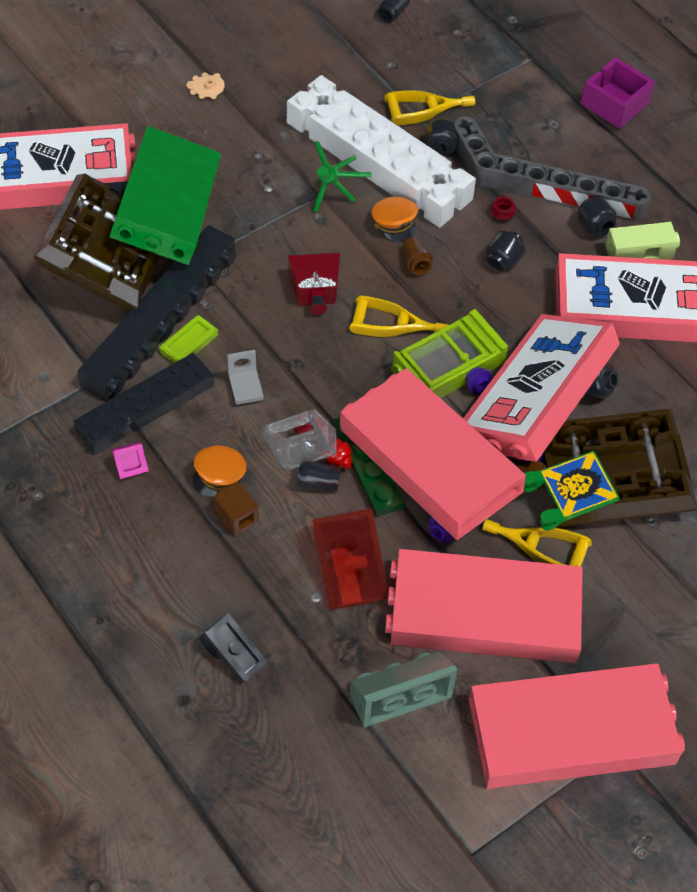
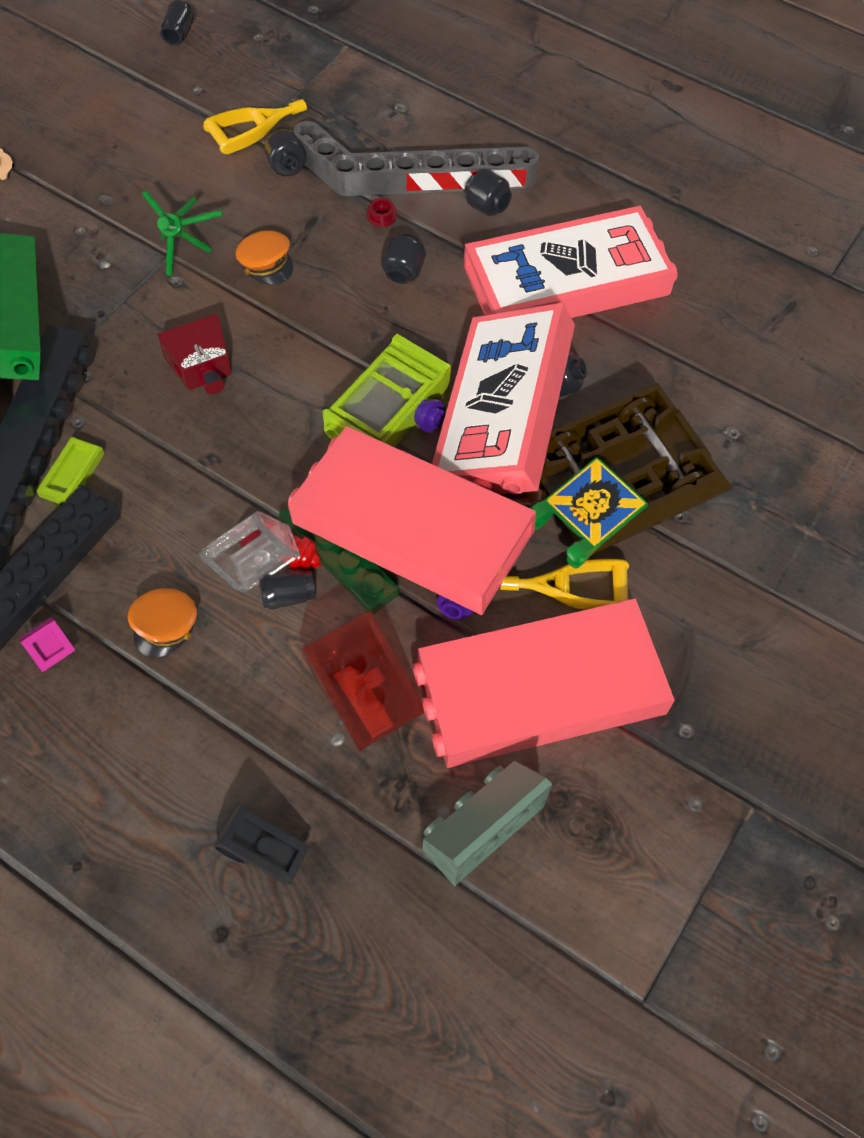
camera: 20 degrees left, 5 degrees up
(236, 508) = (200, 662): reddish brown brick -> none
(244, 378) = (155, 496): light grey bracket -> none
(392, 155) = (246, 189): white brick -> none
(402, 326) = (317, 367): yellow piece -> none
(417, 257) = (306, 294): reddish brown cone -> none
(574, 725) = (698, 795): coral brick -> none
(617, 92) = (457, 54): magenta piece -> none
(643, 241) = (548, 206): yellowish green brick -> none

